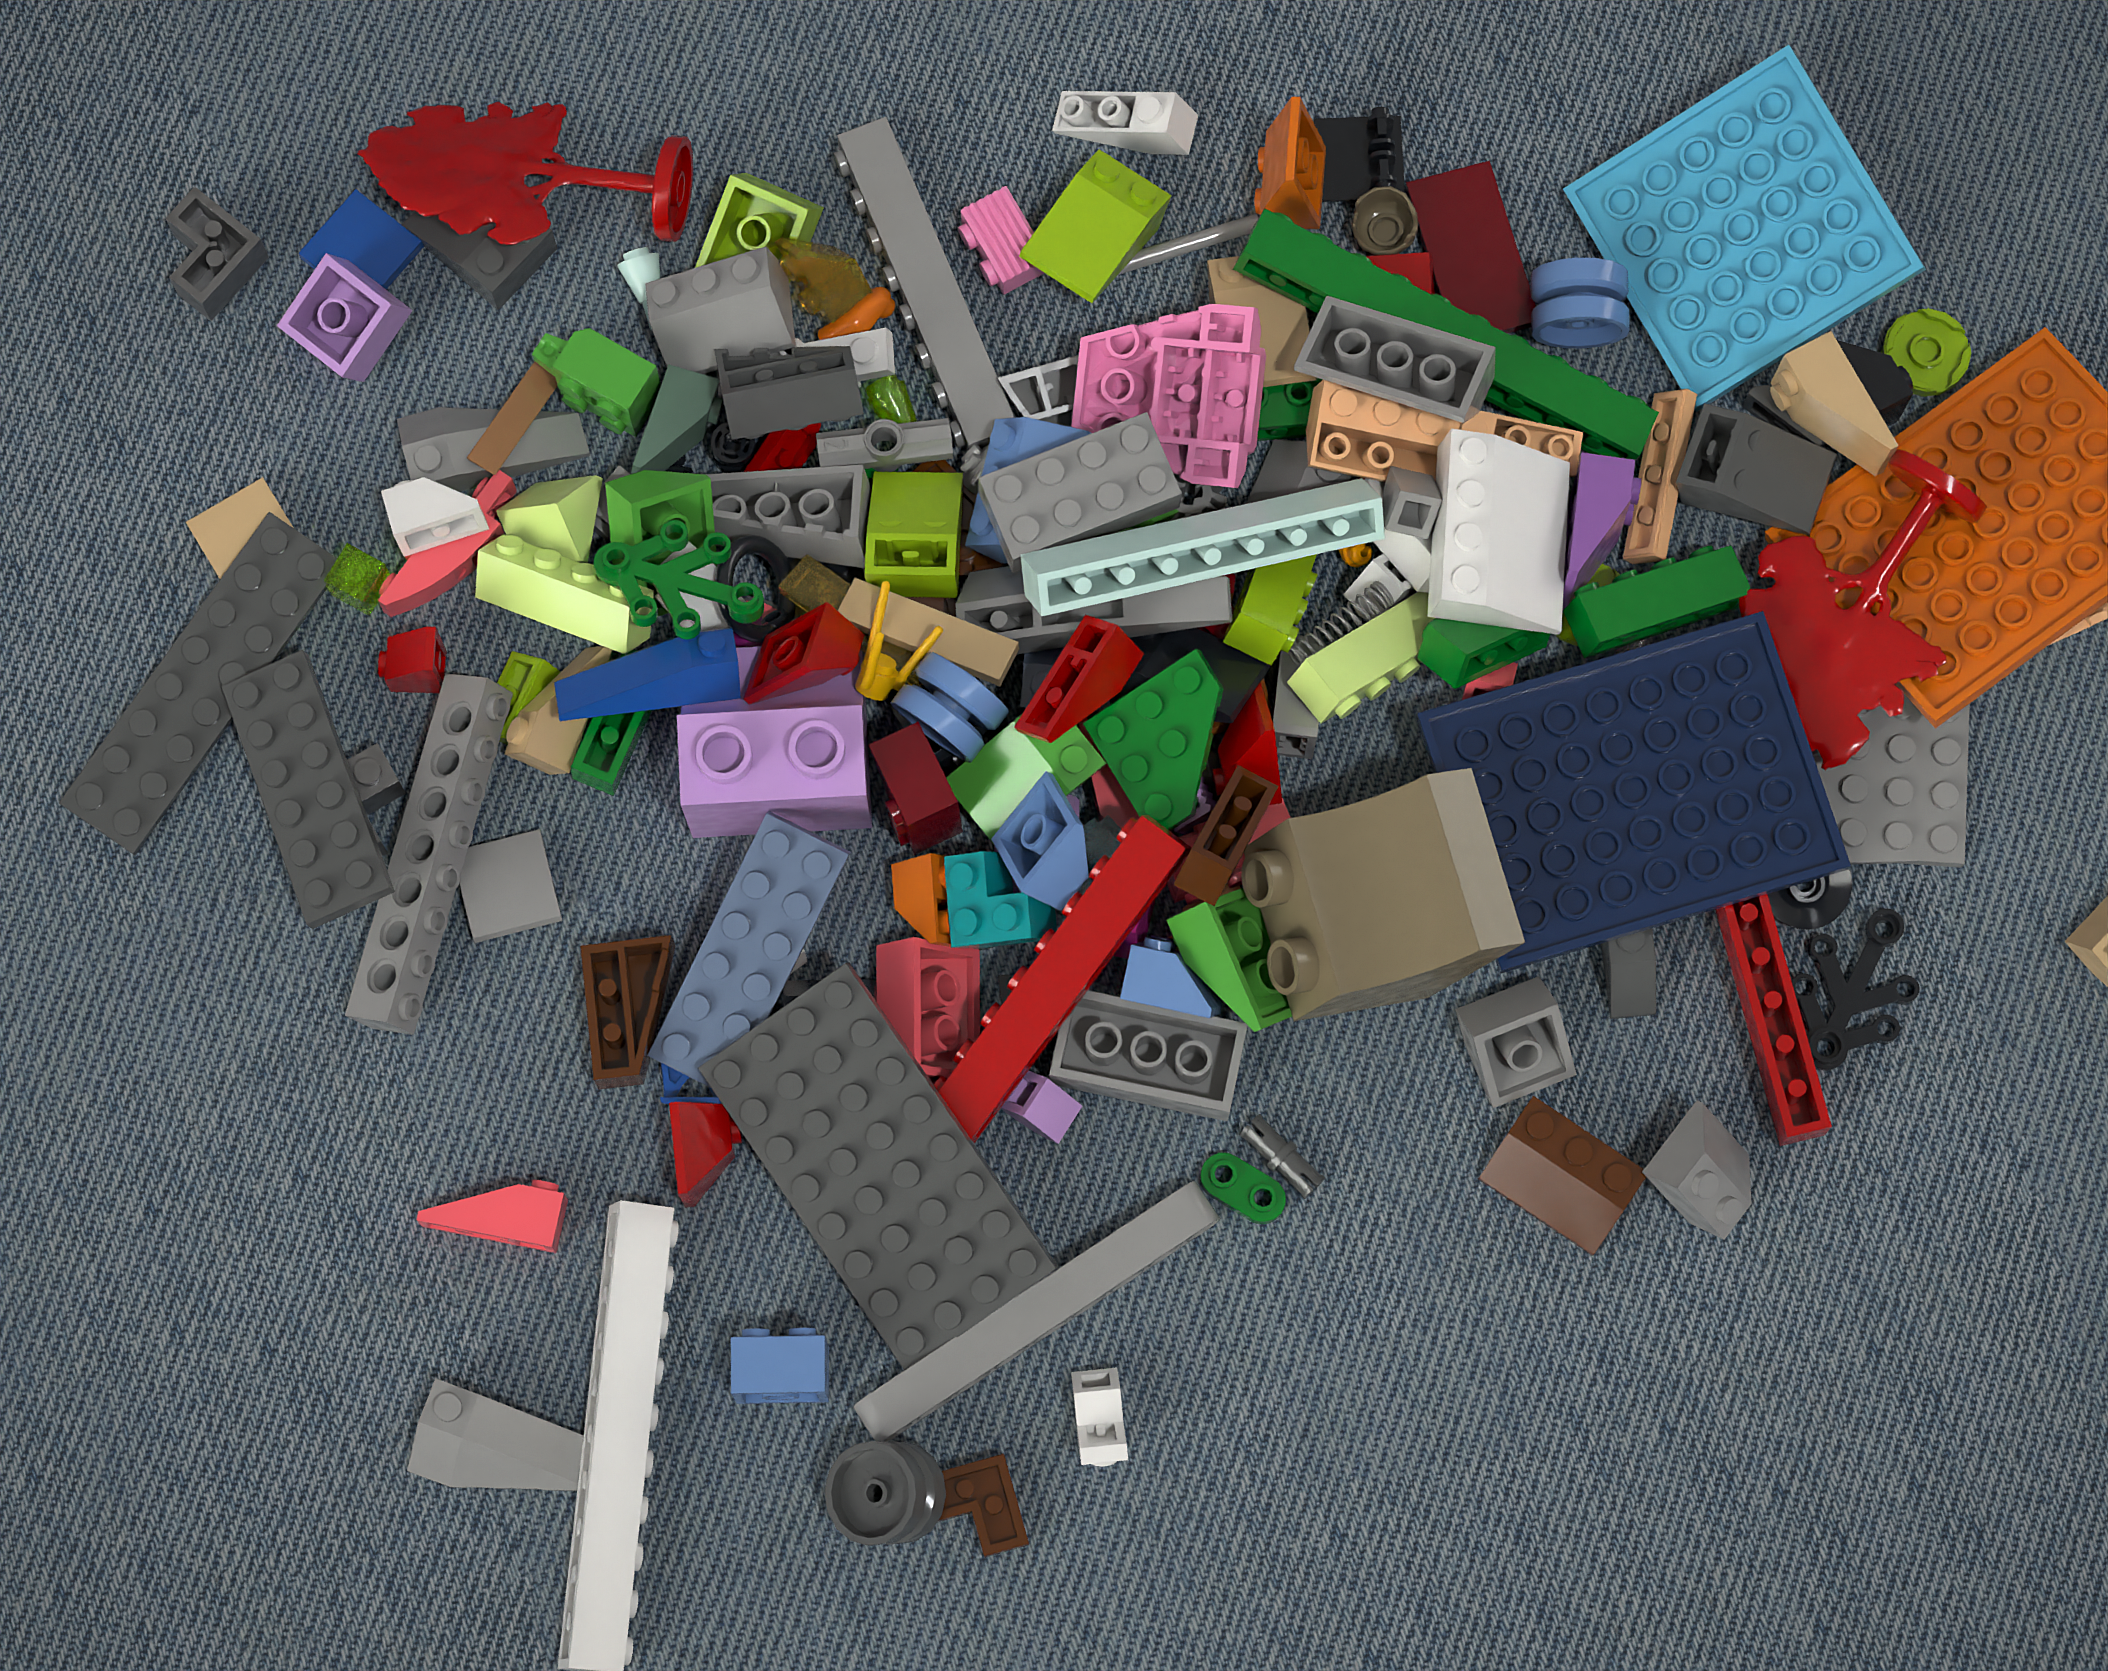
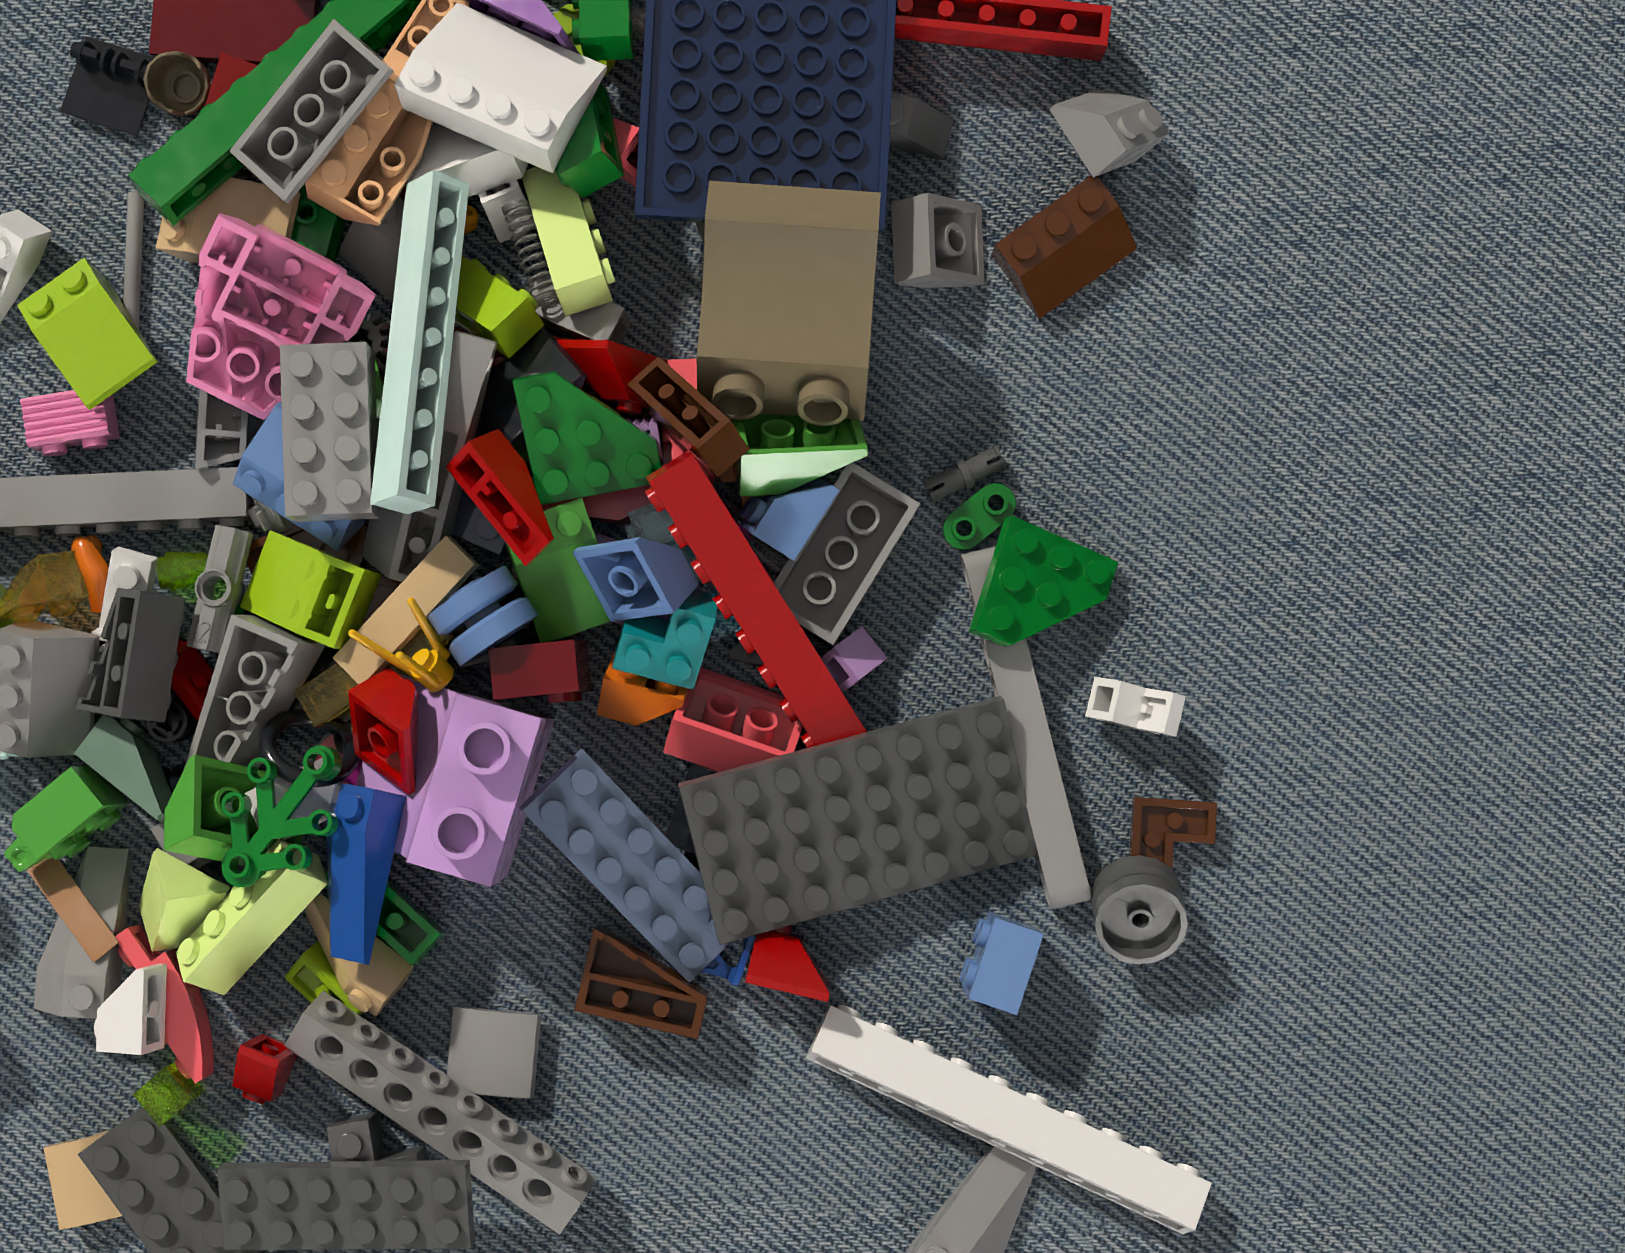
camera: 70 degrees left, 10 degrees up
(509, 1215) = (787, 1140): coral slope -> none
(1193, 1268) = (1037, 583): none -> green plate
(1292, 167) = (95, 143): orange slope -> none
(1410, 502) = (445, 148): light grey brick -> none

